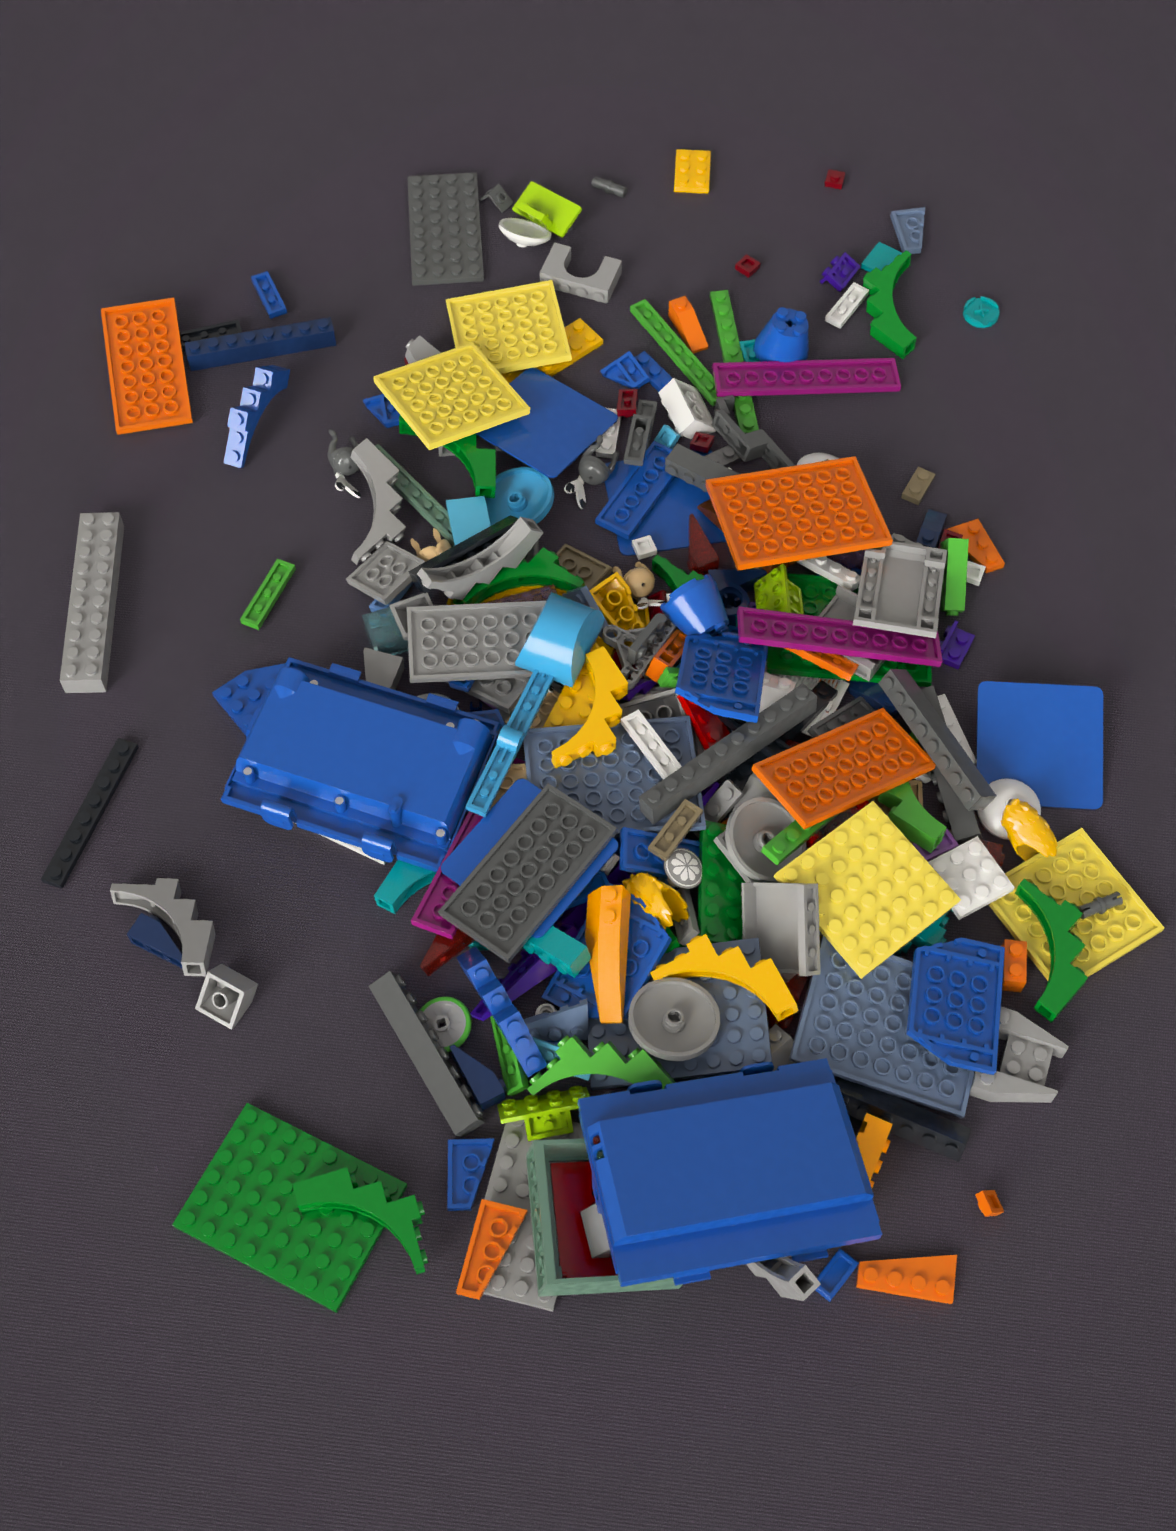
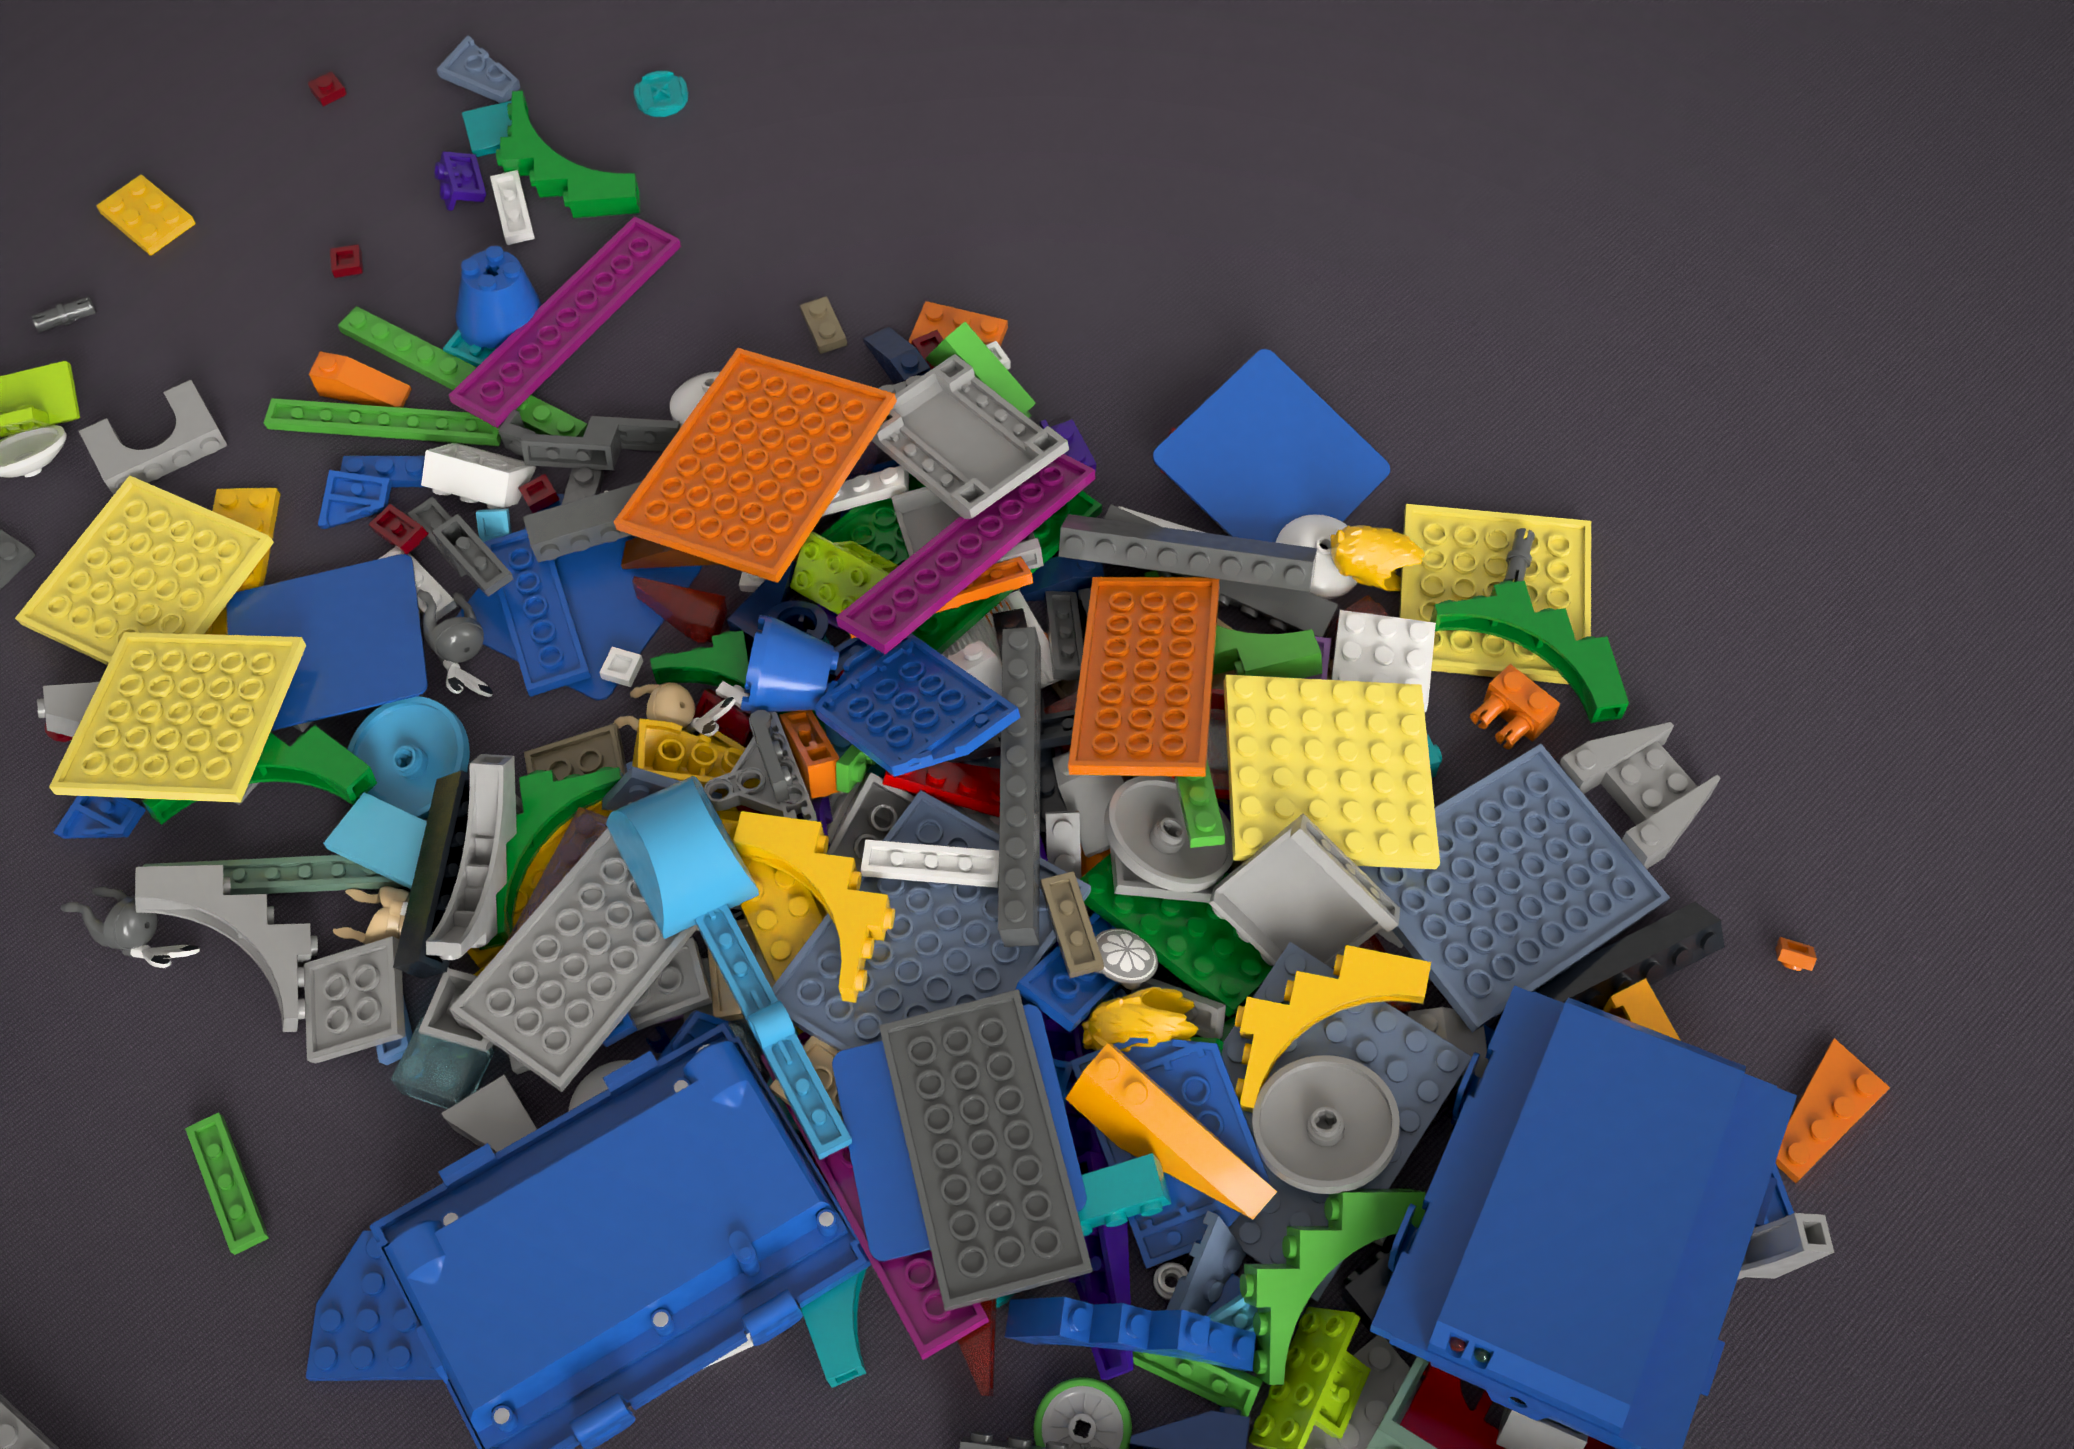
camera: 50 degrees left, 0 degrees up
(958, 1002) = (1540, 790): blue plate -> none

